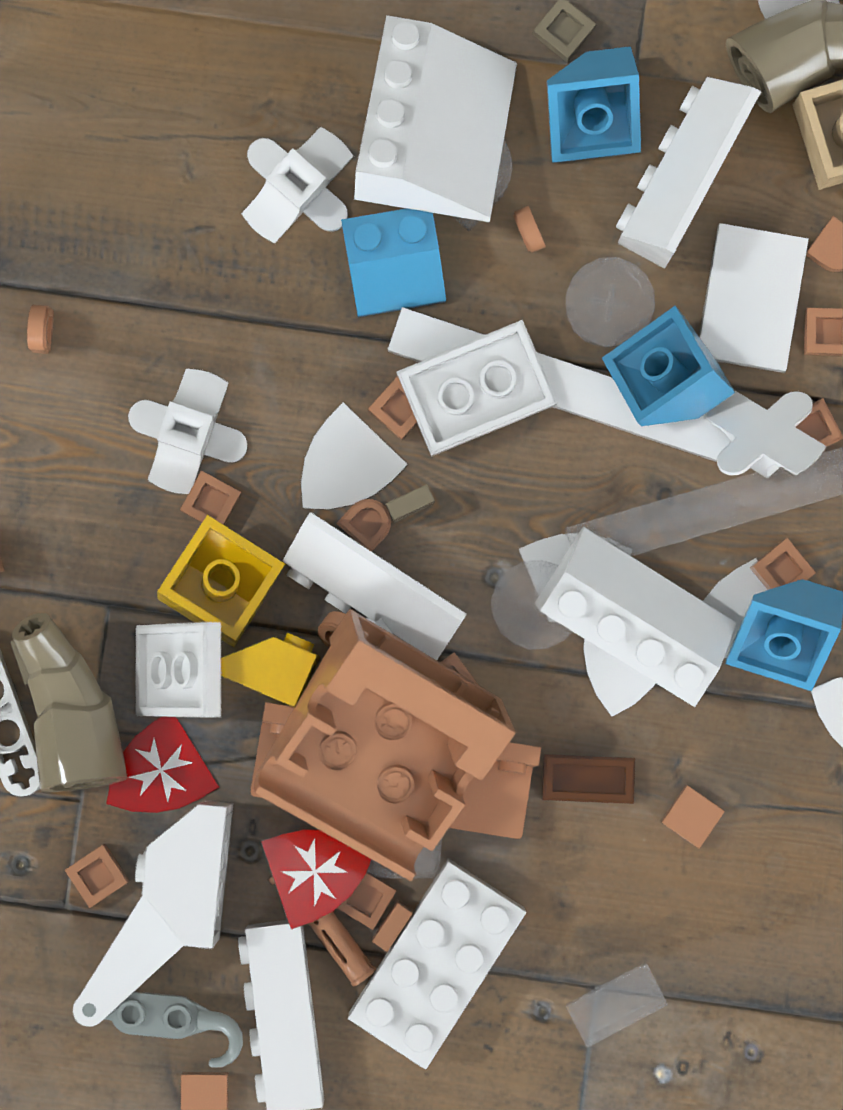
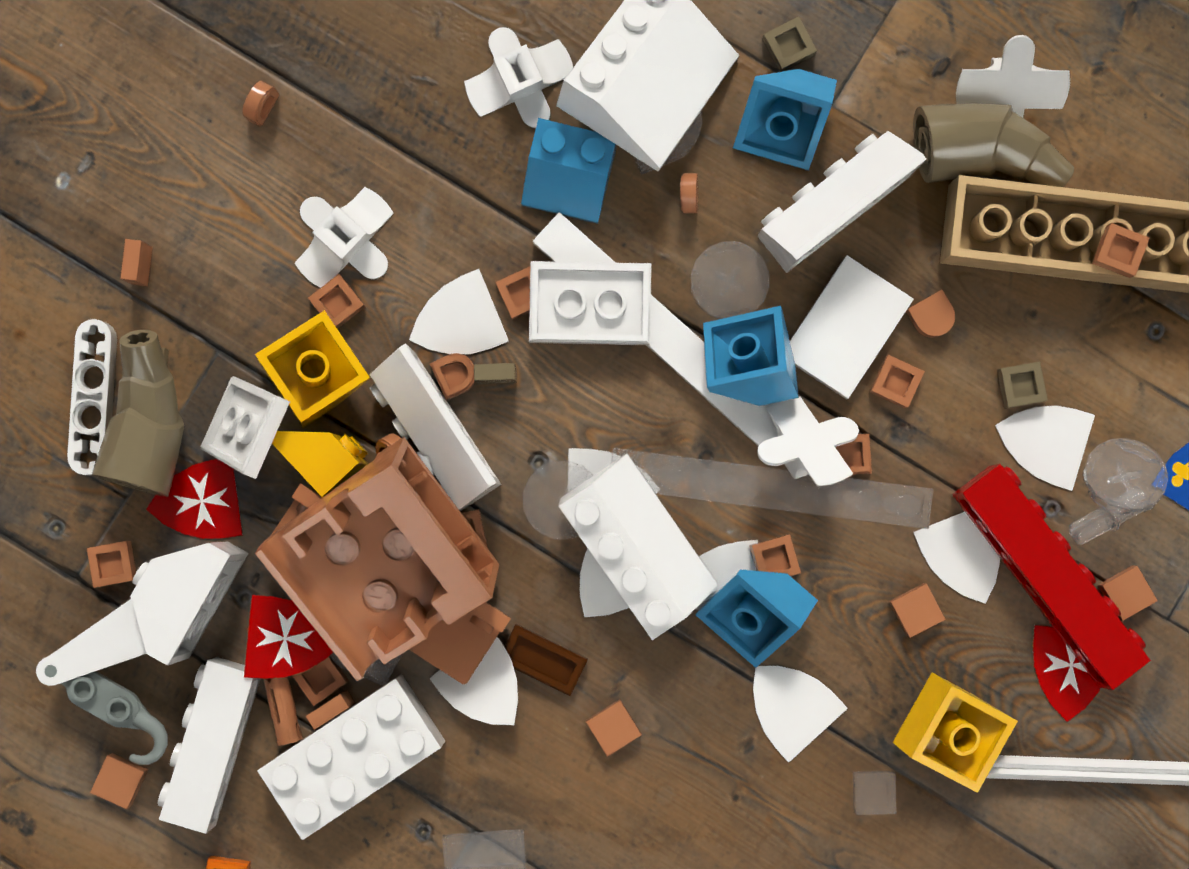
camera: 25 degrees right, 0 degrees up
(549, 837) = (490, 692): none -> white sticker

